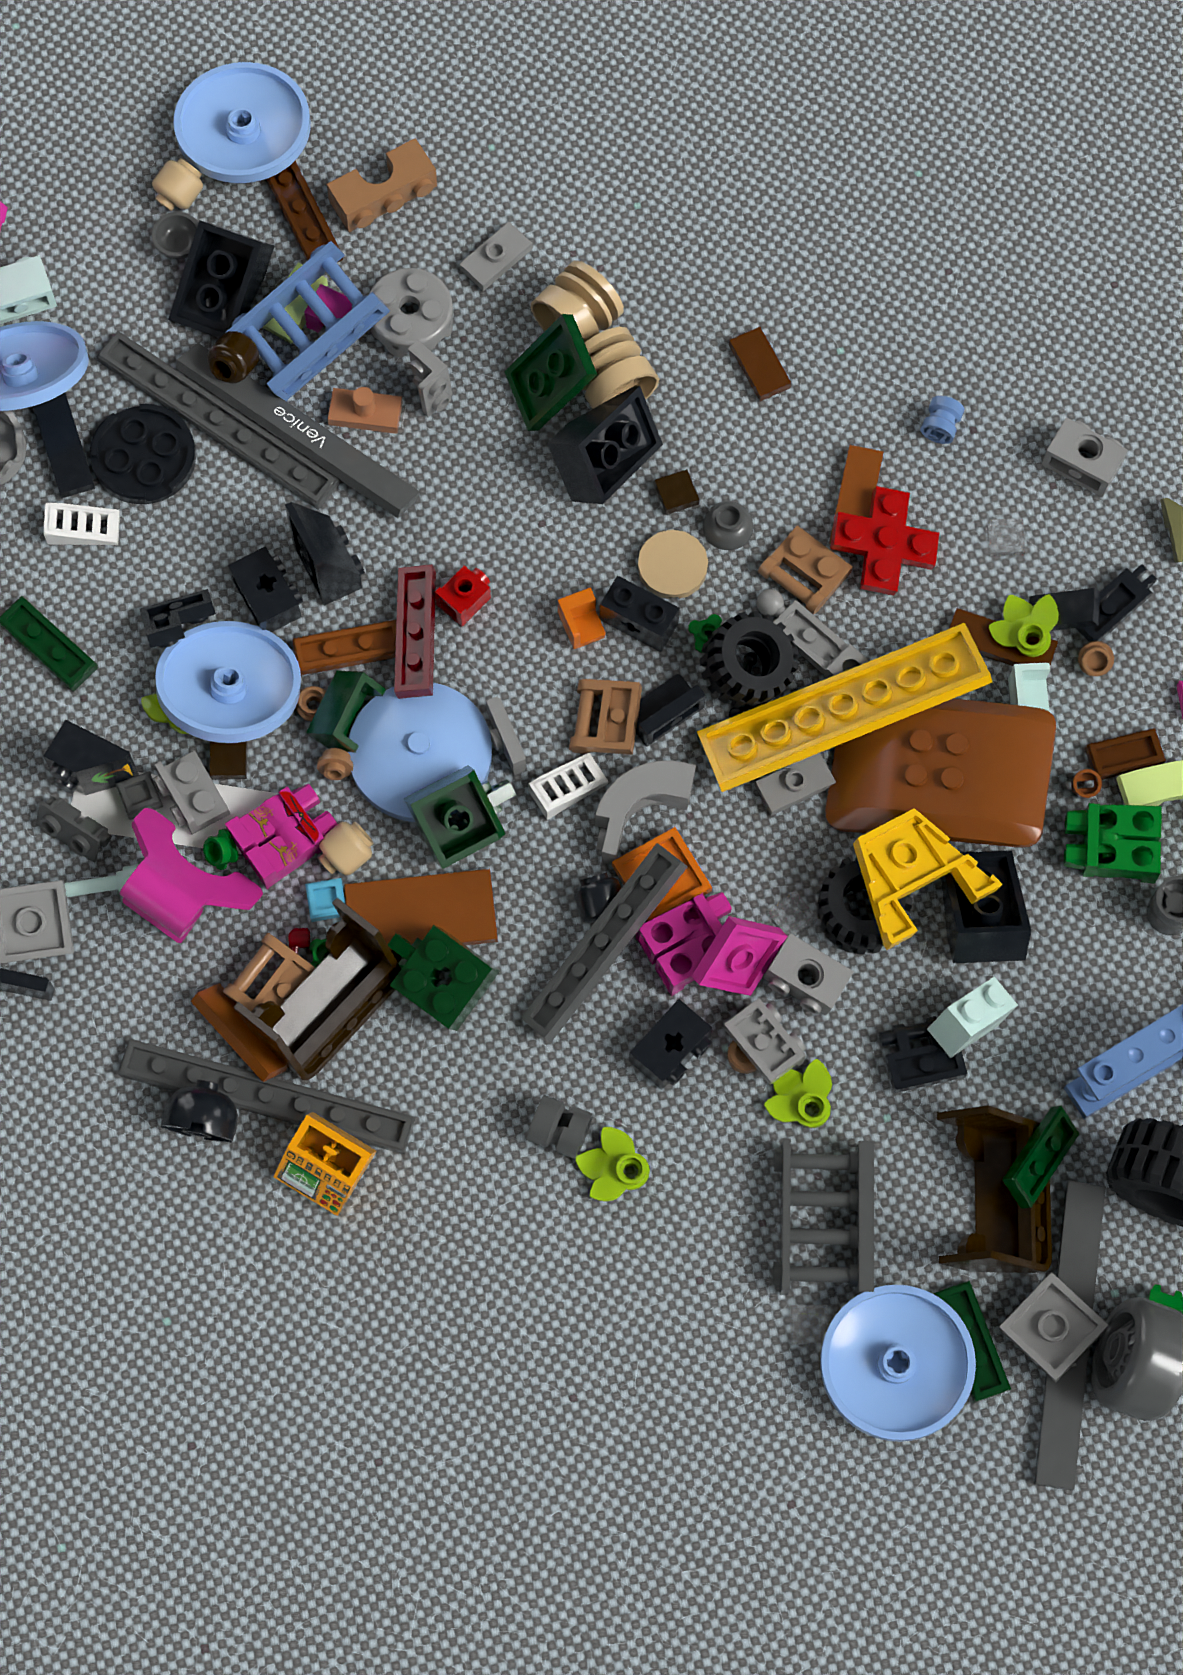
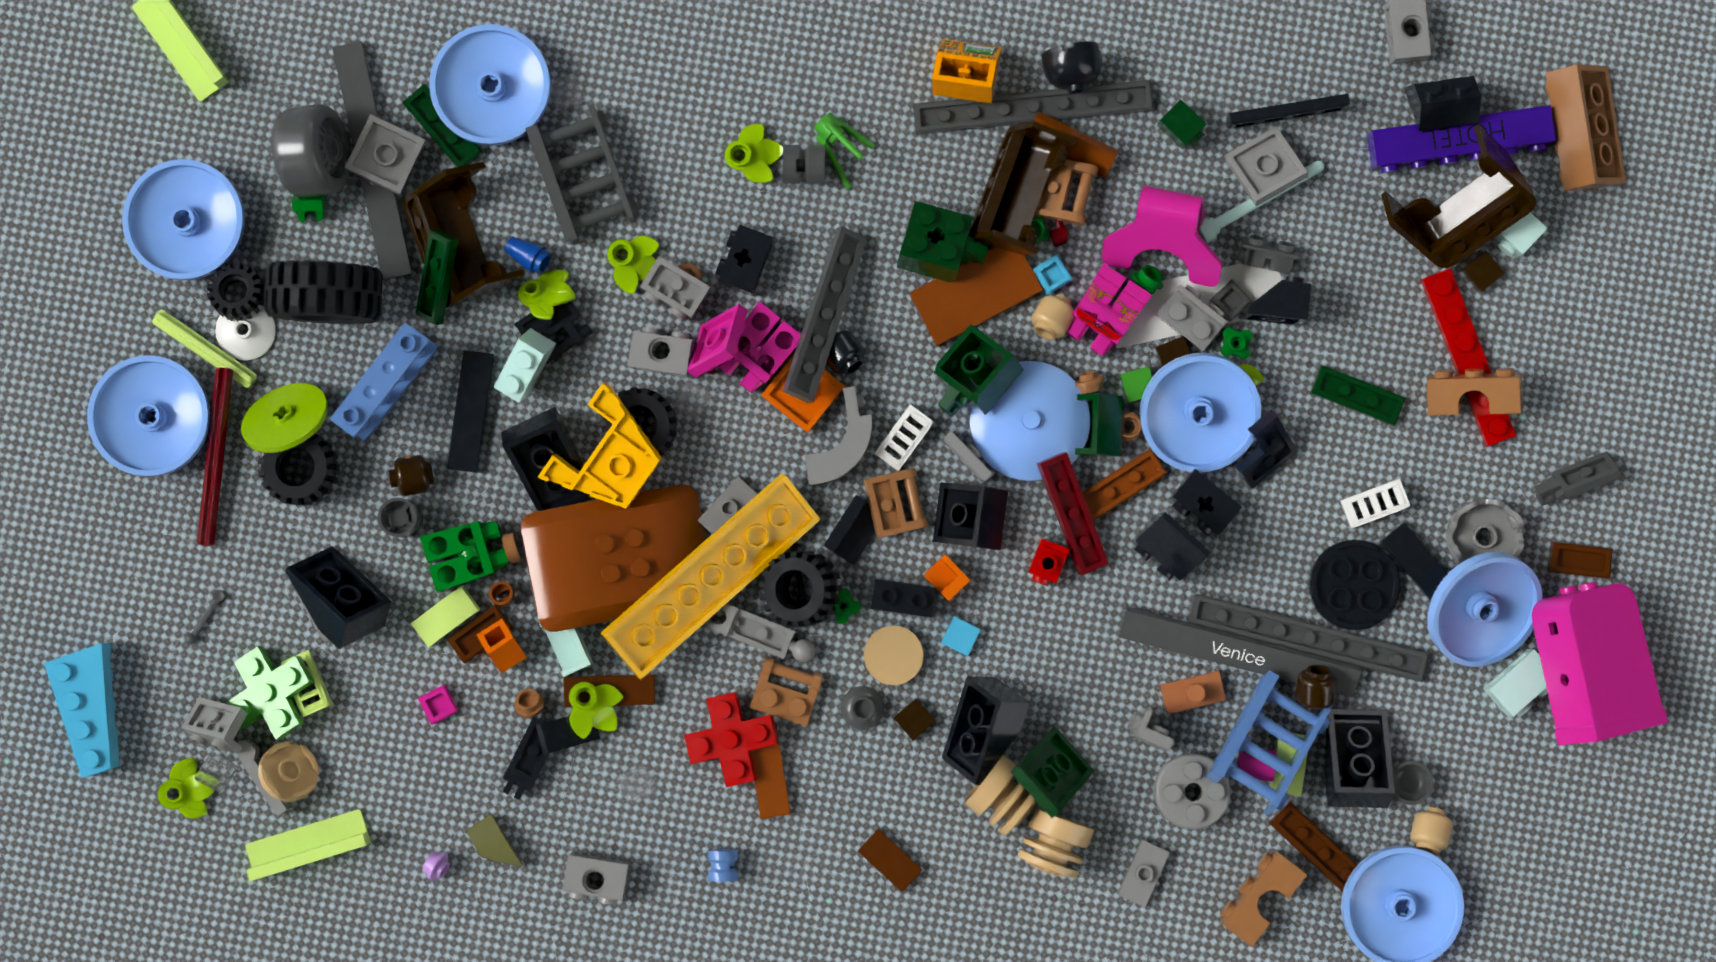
camera: 160 degrees right, 15 degrees up
(105, 1005) = (1182, 125): none -> dark green brick
(150, 737) = (1230, 349): none -> green plate
(283, 745) = (1135, 382): none -> bright green tile
(512, 1157) = (832, 130): none -> bright green plant
(529, 672) = (970, 516): none -> black slope
(591, 557) = (960, 636): none -> medium azure tile
(913, 1091) = (545, 293): none -> lime plate
(922, 1149) = (530, 255): none -> blue cone
(1052, 999) = (470, 411): none -> black tile
(1057, 828) = (512, 548): none -> medium nougat tile
(1106, 724) = (501, 646): none -> orange brick
(1146, 949) = (411, 475): none -> dark brown head

